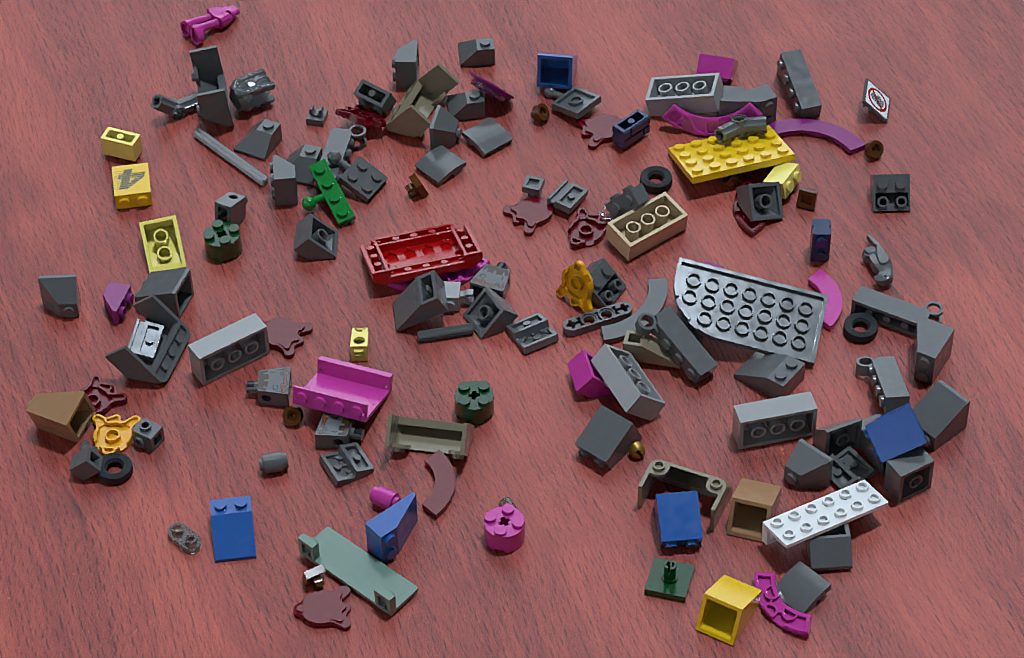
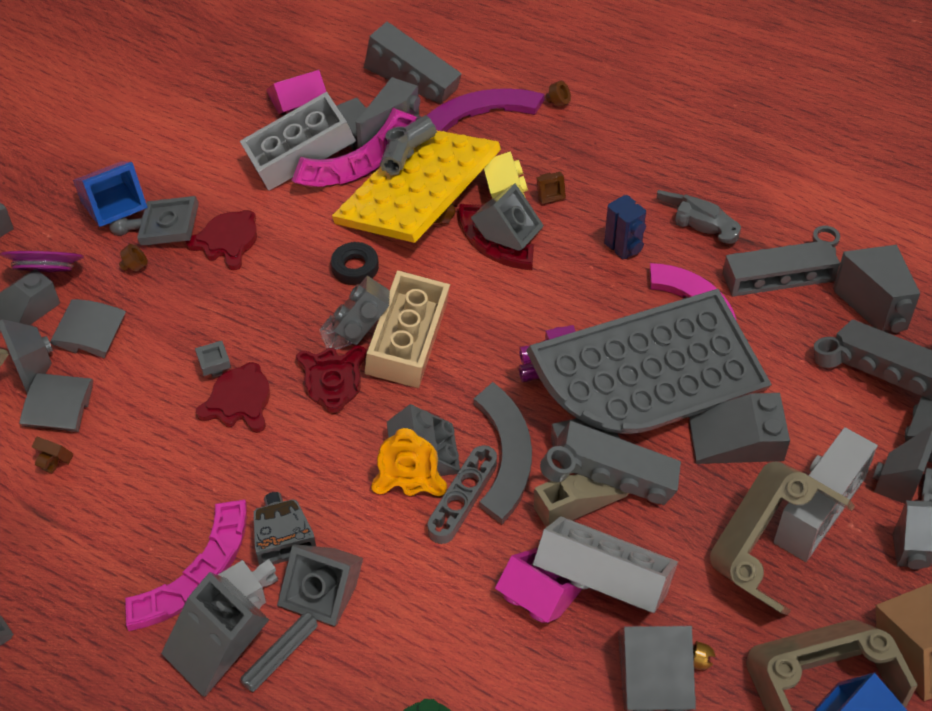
camera: 40 degrees left, 5 degrees up
(419, 251) = (142, 552): red slope -> none
(532, 333) = (398, 571): dark grey slope -> none
(567, 196) = (269, 348): dark grey plate -> none
(631, 128) = (270, 216): dark blue brick -> none
(716, 409) = (733, 548): none -> dark tan windscreen
(857, 336) = (771, 295): black tyre -> none
(876, 100) = (507, 42): piece -> none
(890, 192) = (628, 130): dark grey slope -> none

